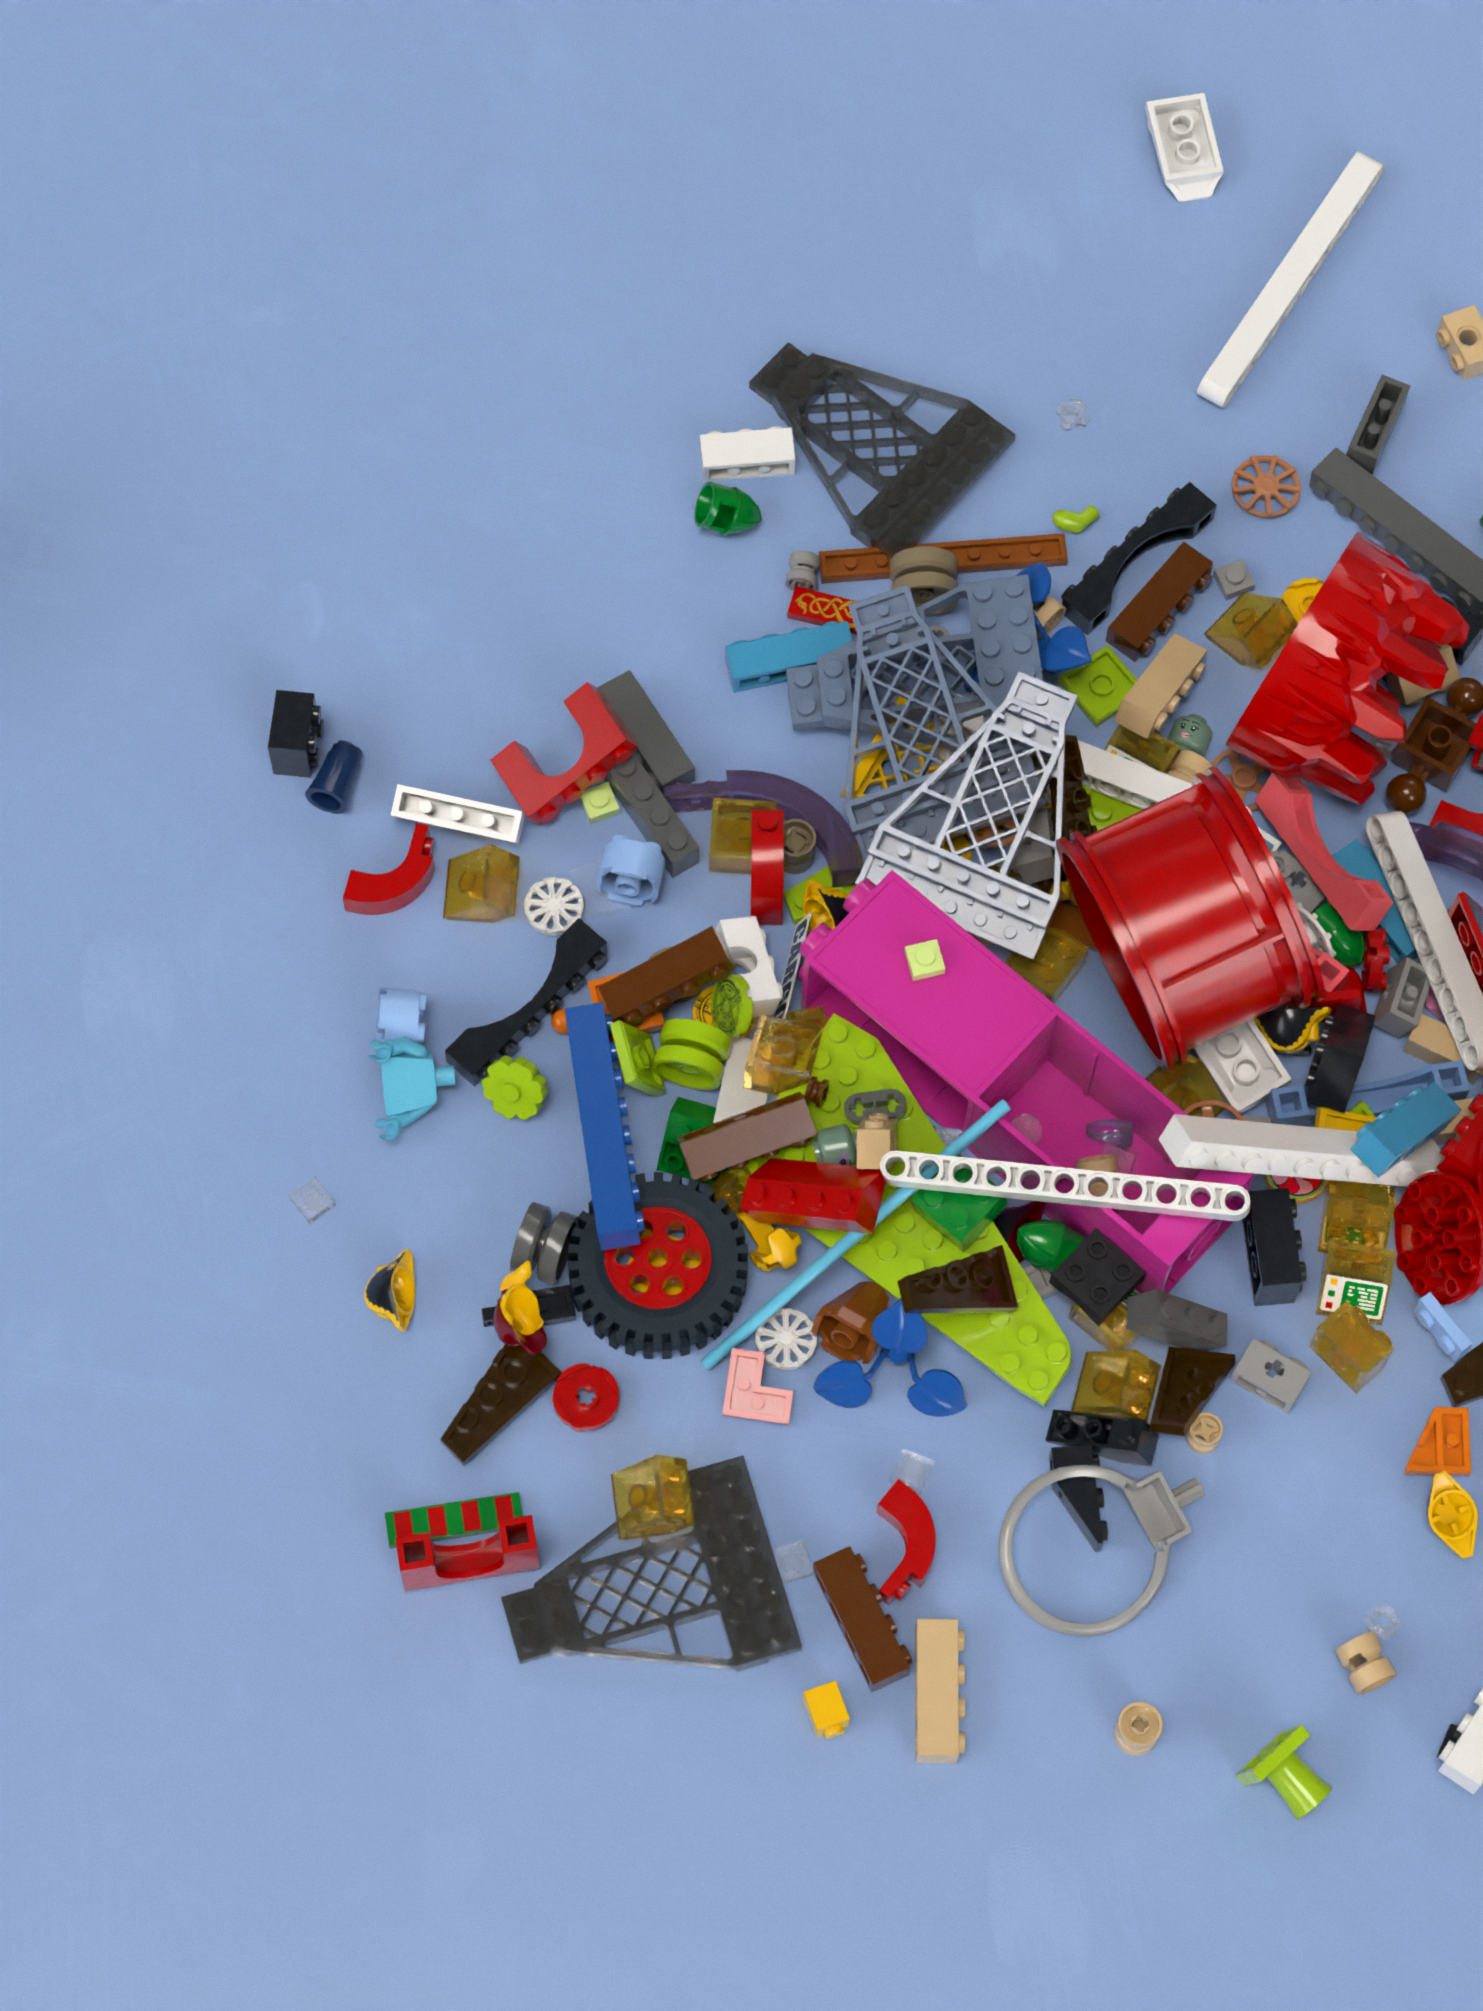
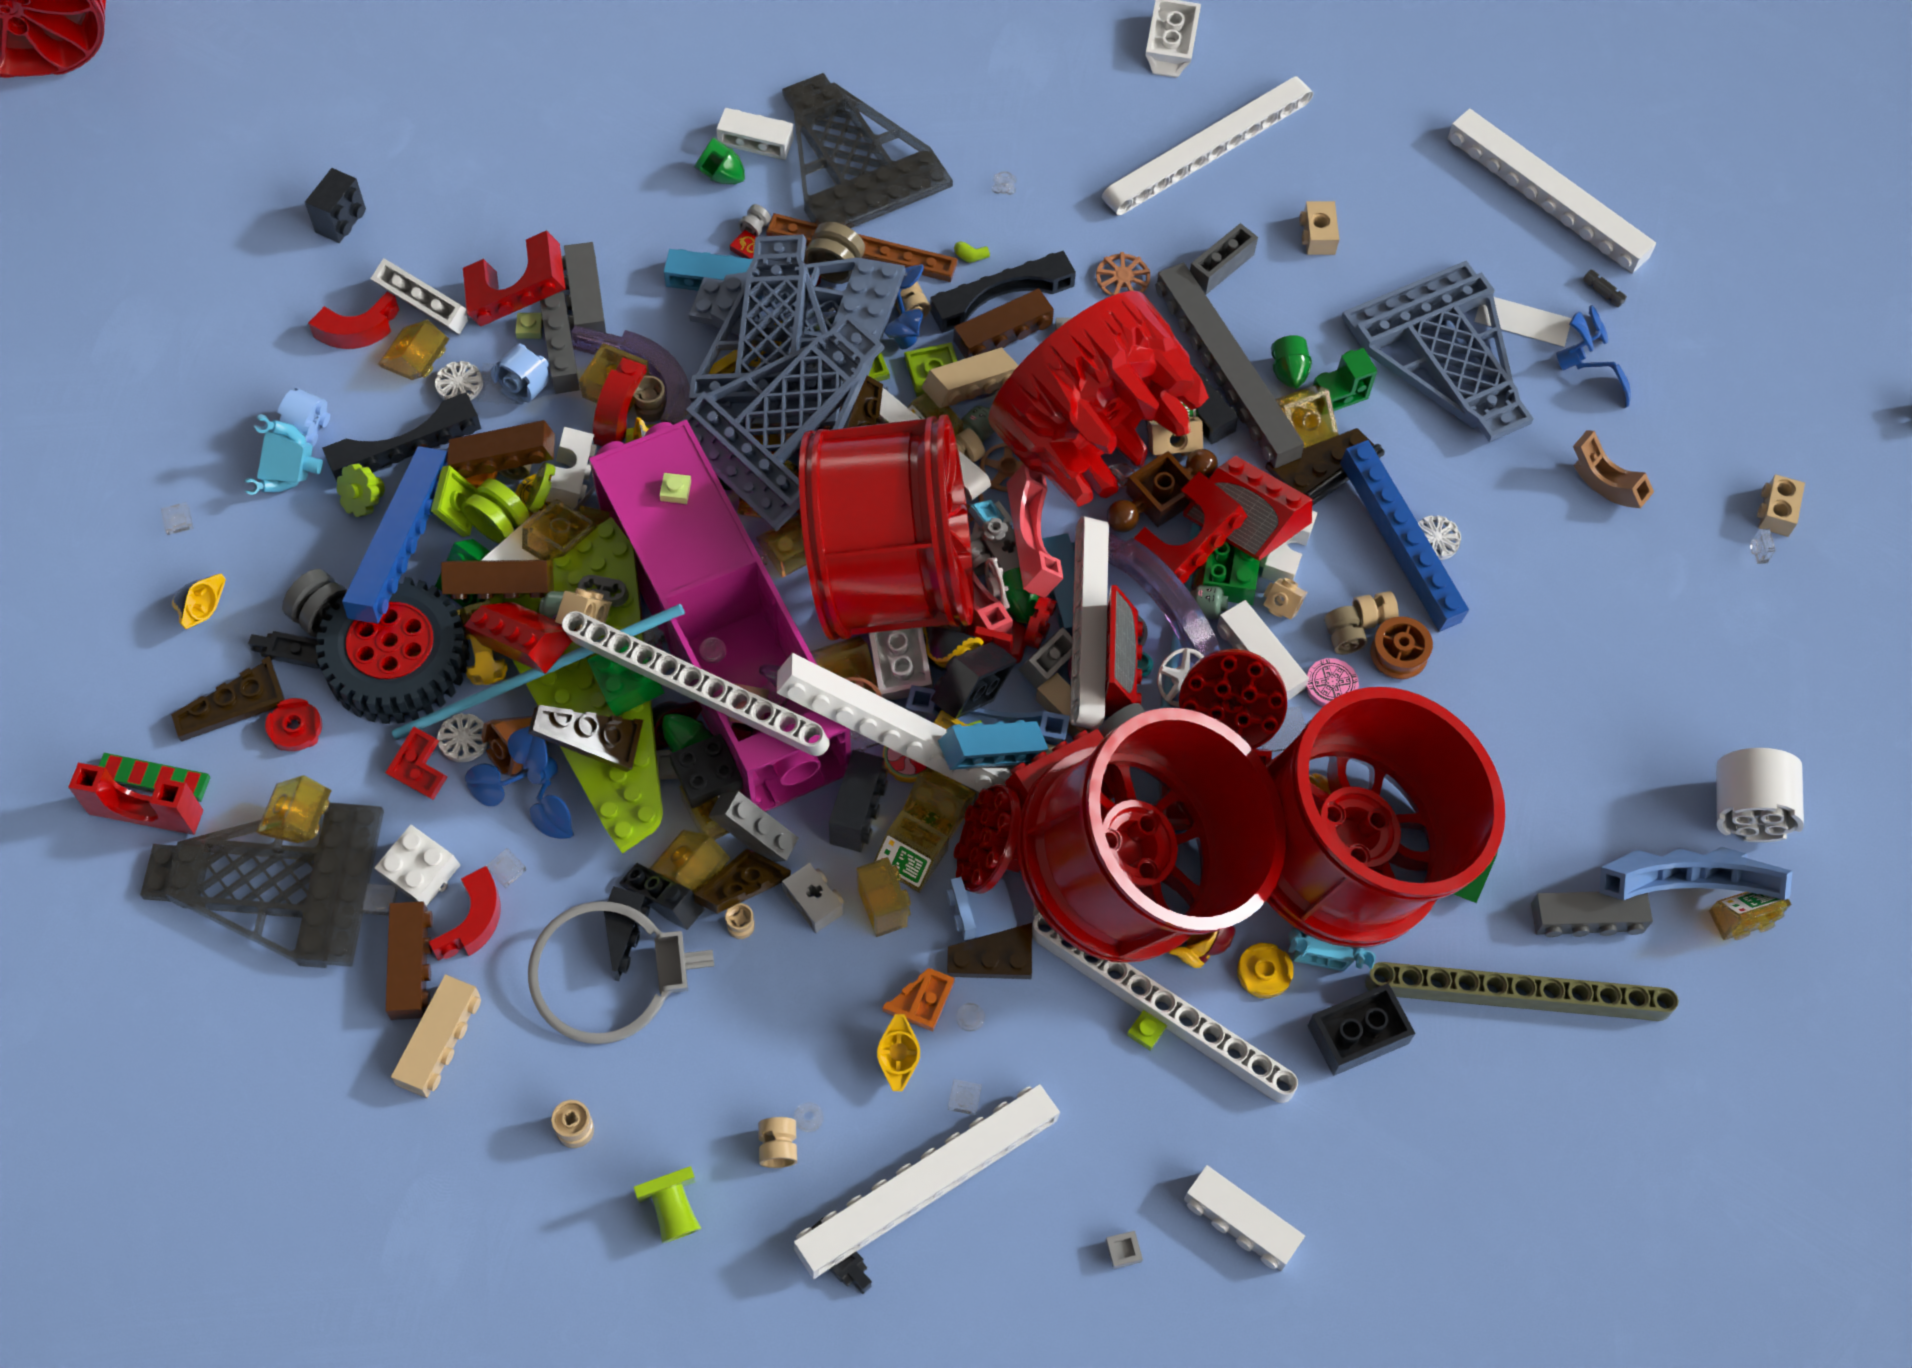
camera: 20 degrees right, 5 degrees down
(335, 778) = (351, 245): dark blue plant -> none
(518, 1313) = (269, 643): yellow hair -> none
(816, 1091) = (565, 564): reddish brown bush -> none
(818, 1508) = (417, 866): none -> white brick
(826, 1710) = (345, 1018): yellow brick -> none

